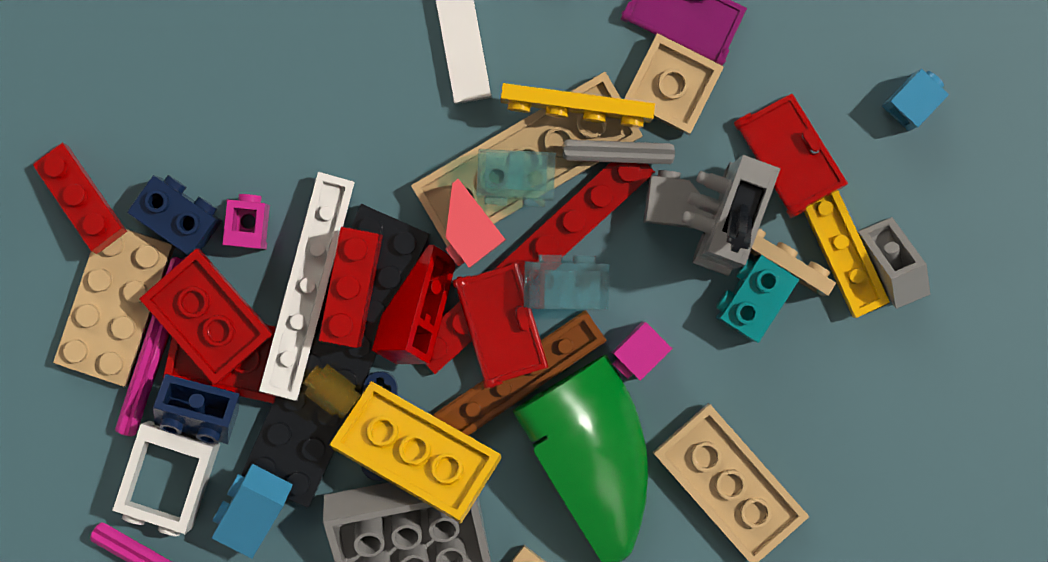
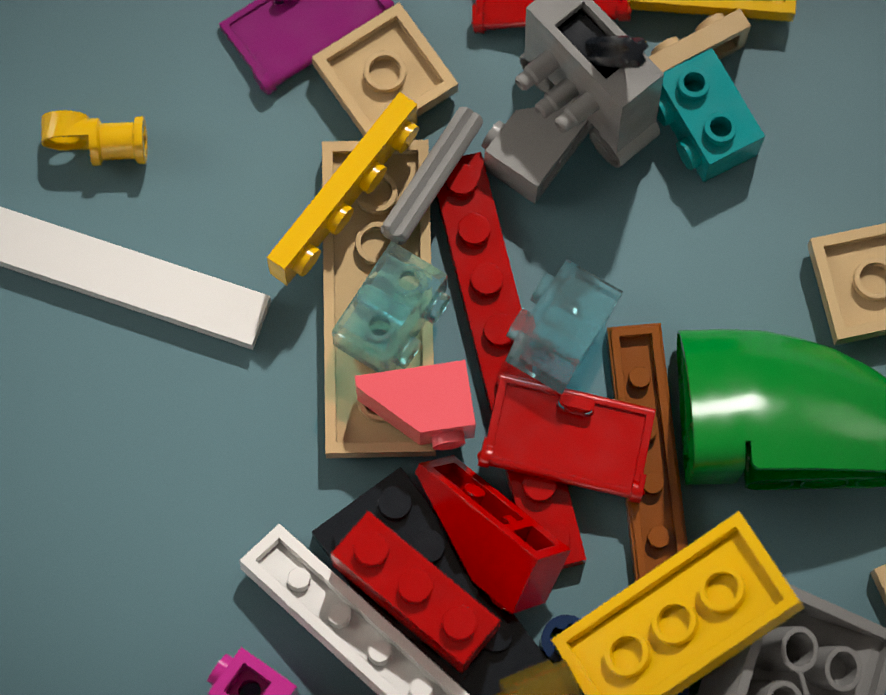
camera: 60 degrees left, 15 degrees down
(640, 352) = (697, 287): dark pink brick -> none

